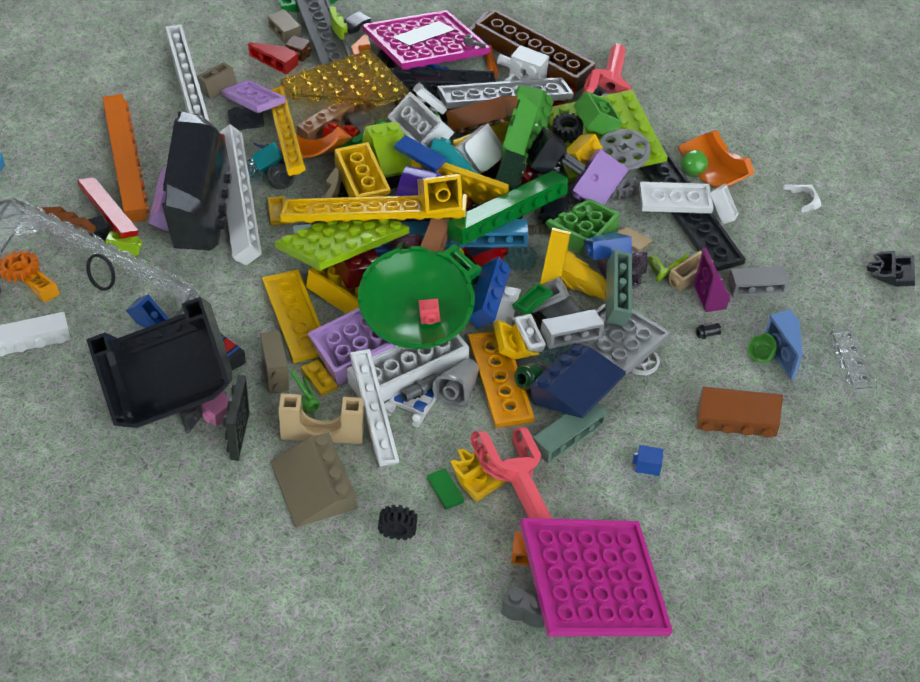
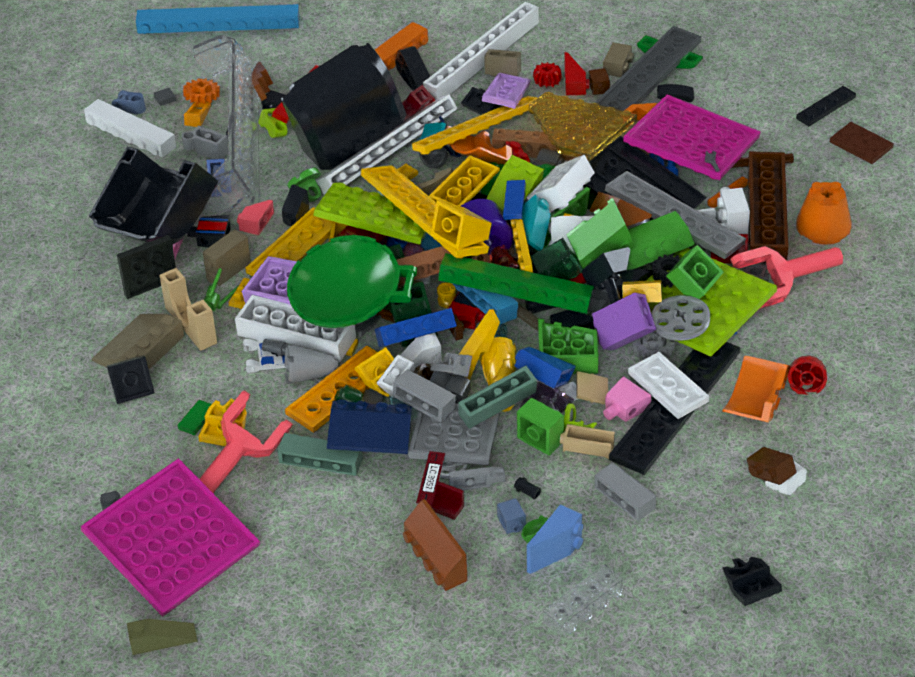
camera: 60 degrees right, 5 degrees down
(100, 297) = (207, 142): none -> light grey hinge
(156, 127) = (411, 67): none -> black beam
(230, 265) = (307, 181): none -> bright green tile
(233, 320) = (255, 217): none -> coral slope
(256, 68) = (547, 74): none -> red gear
(256, 285) = (295, 205): none -> black slope
(337, 23) = (648, 76): lime slope -> none
(366, 507) = (130, 379): none -> black plate
(374, 408) = (227, 330): white tile -> none
(397, 522) = (131, 403): black tyre -> none
(423, 33) = (696, 131): white sticker -> none
(424, 95) = (598, 171): white plate -> none
(429, 311) = (341, 299): coral bracket -> none
(532, 299) = (432, 355): green tile -> none
(574, 28) = (824, 214): none -> orange cone
(648, 460) = (332, 517): blue brick -> none
(660, 285) = (540, 426): none -> bright green brick
(664, 228) = (625, 400): none -> bright pink torso
(667, 374) = (431, 477): none -> sticker
(675, 353) = (476, 478): none -> light grey hinge
(682, 384) = (448, 501): none -> dark red panel
(694, 163) = (739, 378): bright green hair -> none
(696, 649) = (159, 634): none -> olive slope
(710, 285) = (575, 454): magenta slope -> none
(724, 204) = (701, 421): white slope -> none
(726, 126) = (807, 371): none -> red cylinder
(734, 354) = (511, 516): none -> sand blue brick
(798, 195) = (771, 465): none -> reddish brown brick

